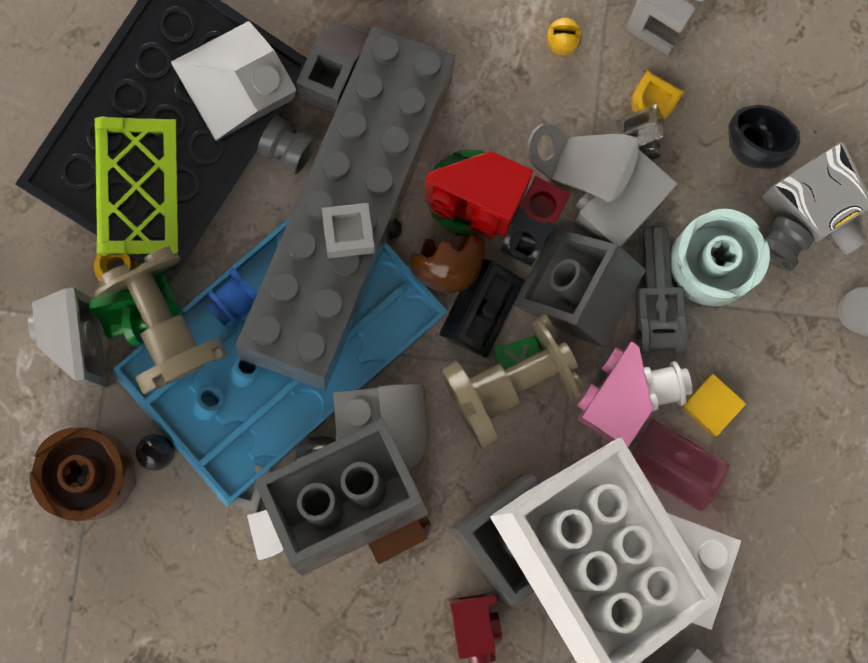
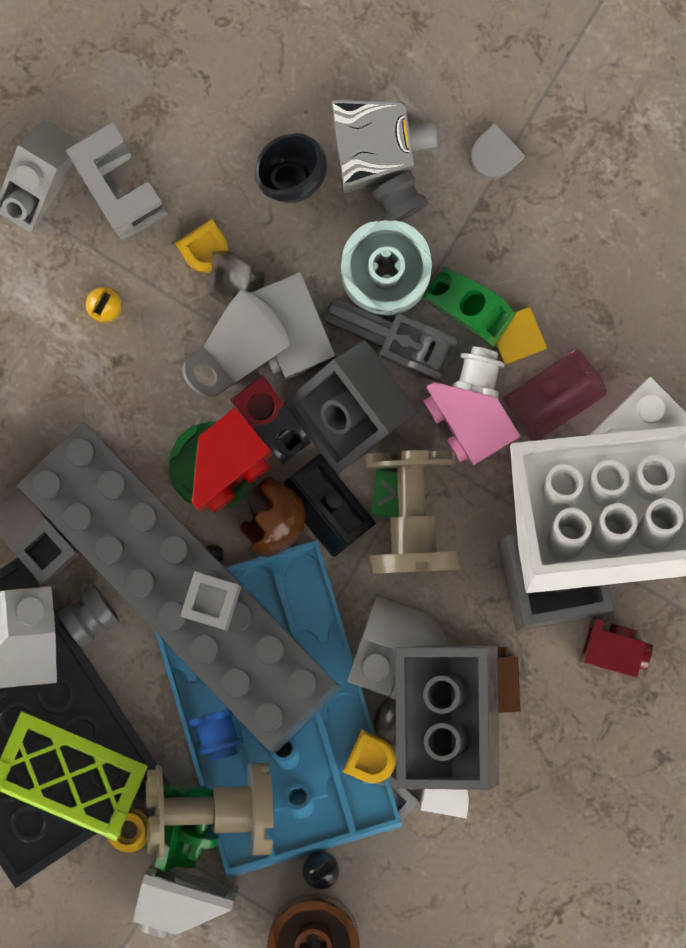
camera: 60 degrees left, 5 degrees up
(273, 447) = (370, 758): none -> yellow tile
(722, 349) = (470, 305): none -> green leg

